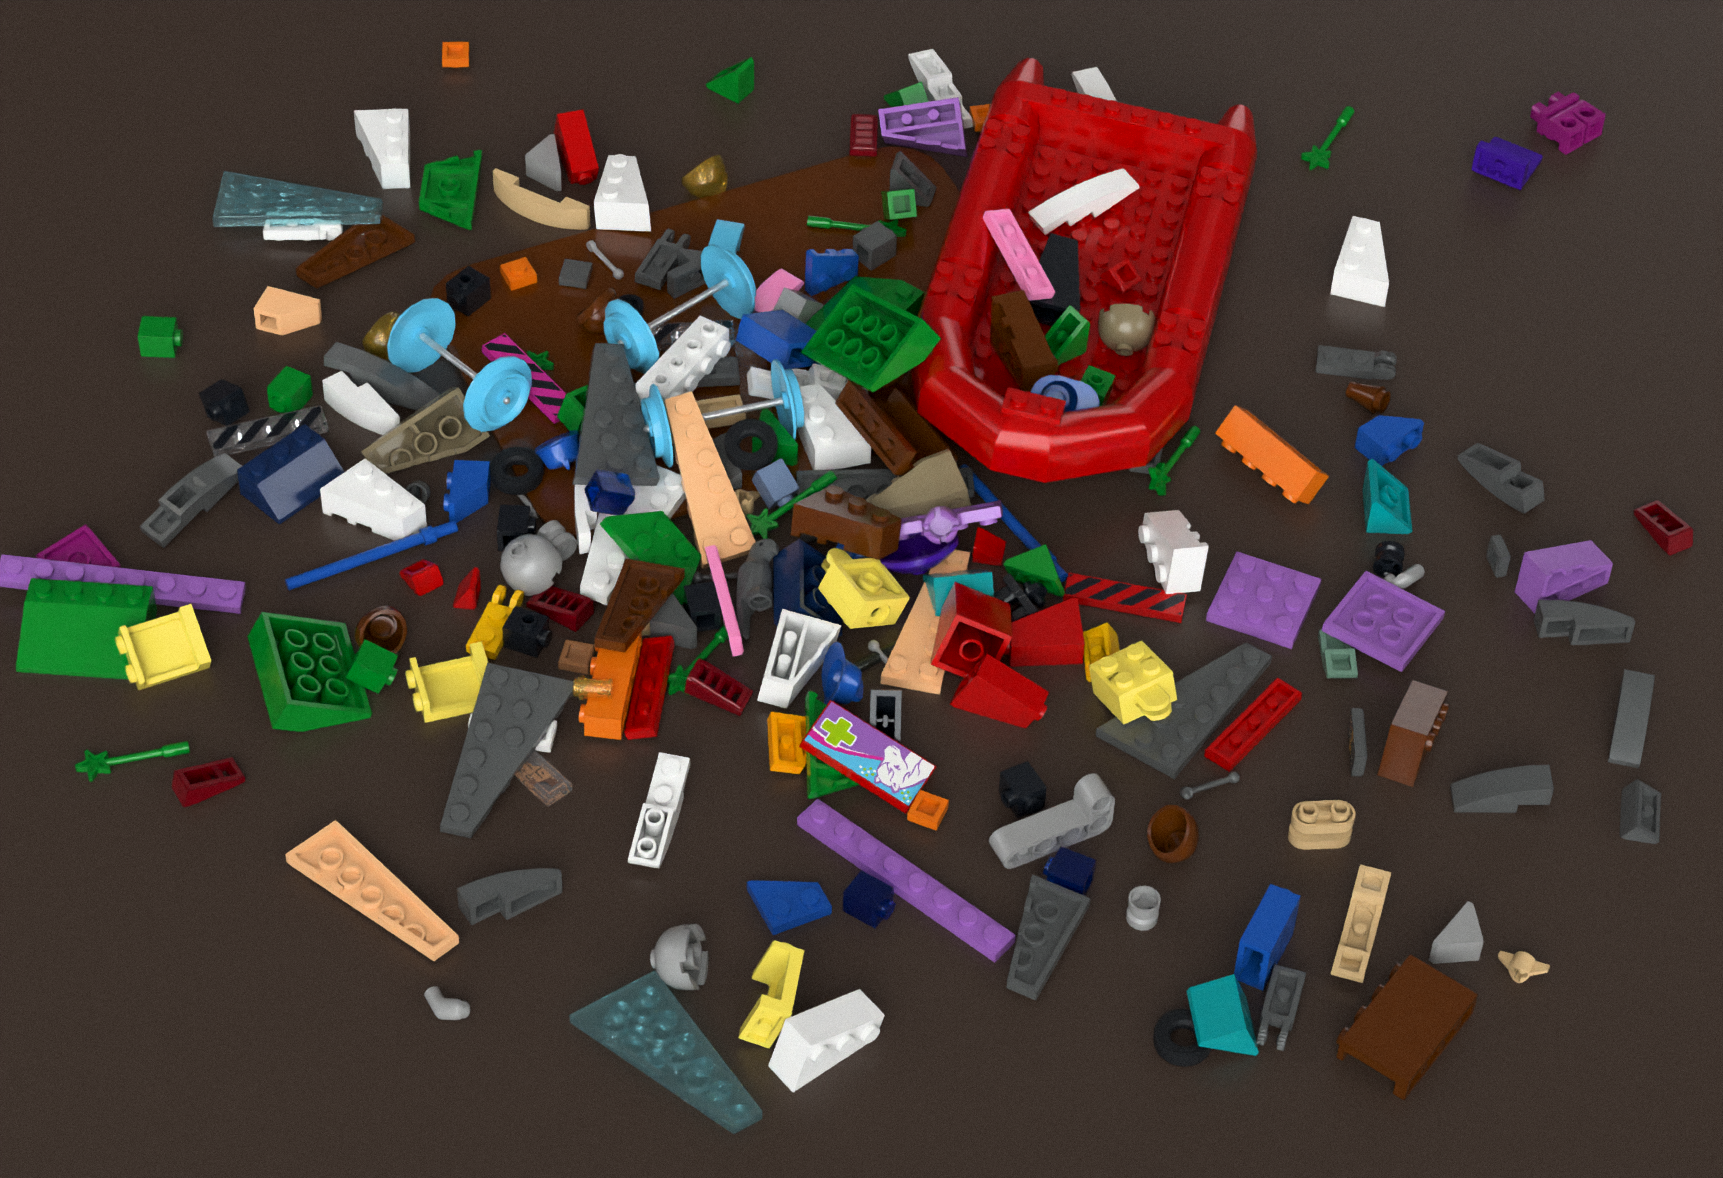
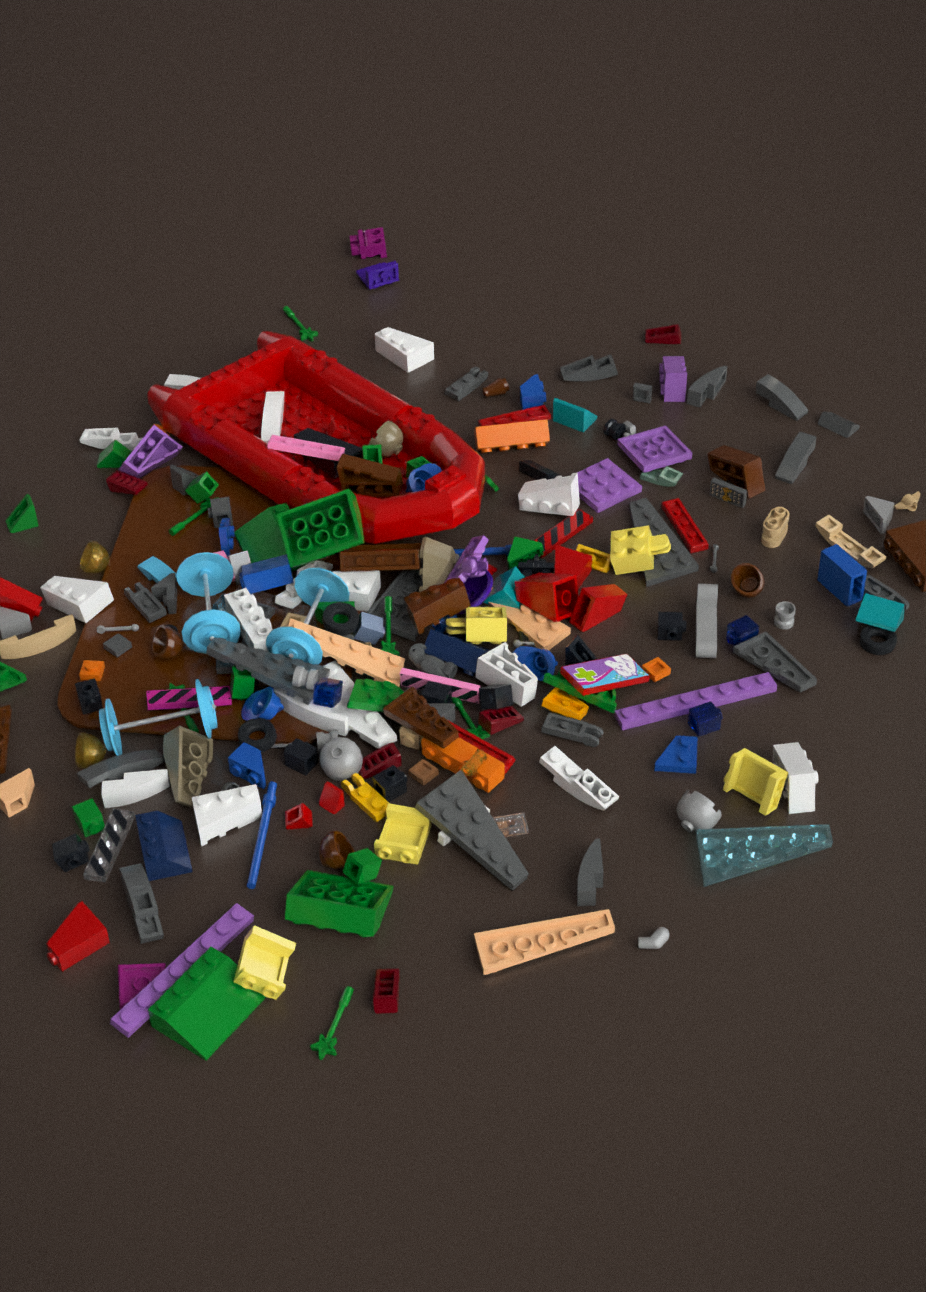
camera: 55 degrees left, 5 degrees down
(111, 472) = (76, 938): none -> red slope
(598, 454) = (305, 677): none -> light grey wheel
(741, 662) = (496, 696): none -> black brick
(750, 767) = (572, 729): none -> dark grey hinge
(1234, 518) = (536, 470): none -> black slope
(1321, 445) = (525, 415): none -> red tile

